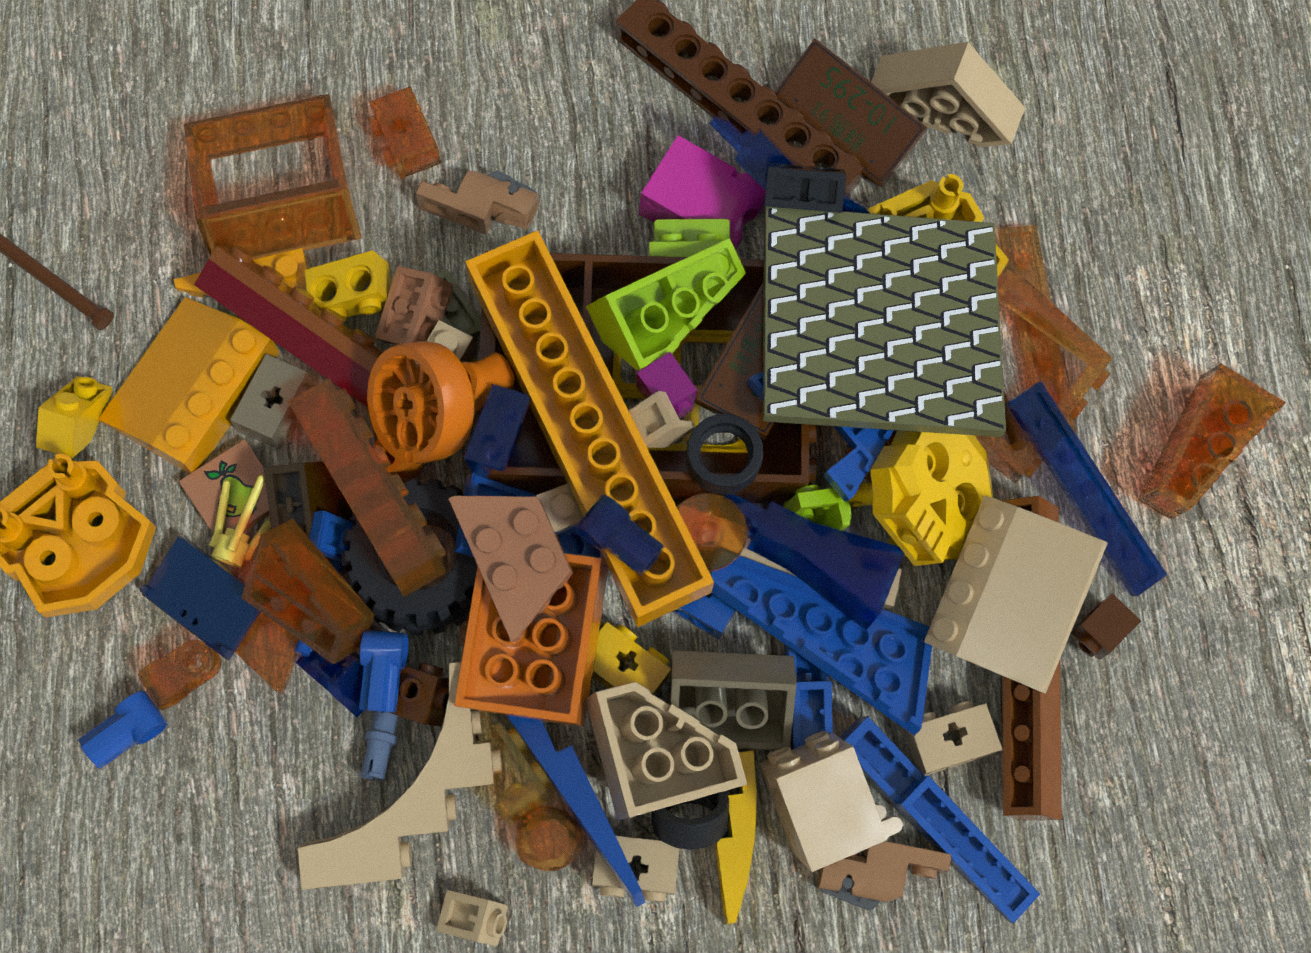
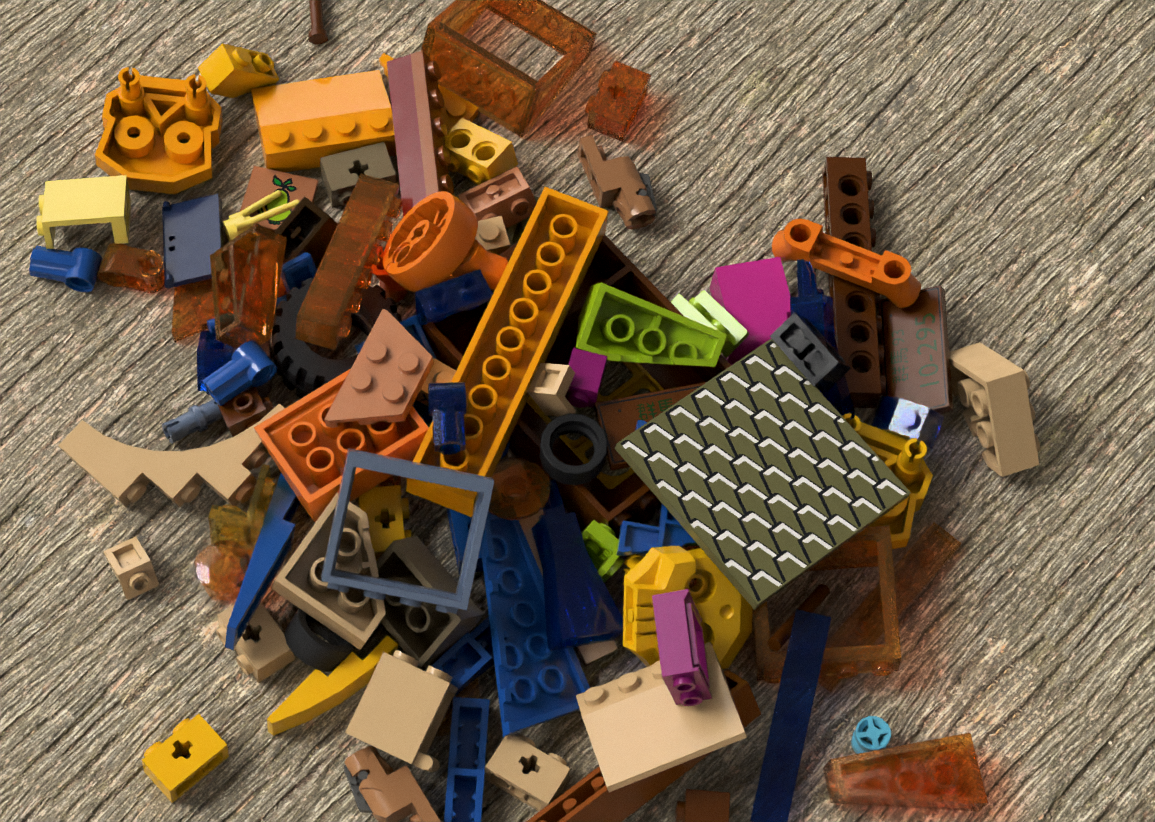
camera: 45 degrees right, 10 degrees down
(81, 664) = (85, 203): none -> light yellow panel
(655, 612) = (409, 594): none -> sand blue window
(689, 102) = (883, 273): none -> orange plate
(903, 171) = (908, 420): none -> clear blue slope
(996, 527) = (681, 647): none -> magenta window
(1152, 437) = (873, 729): none -> medium azure wheel

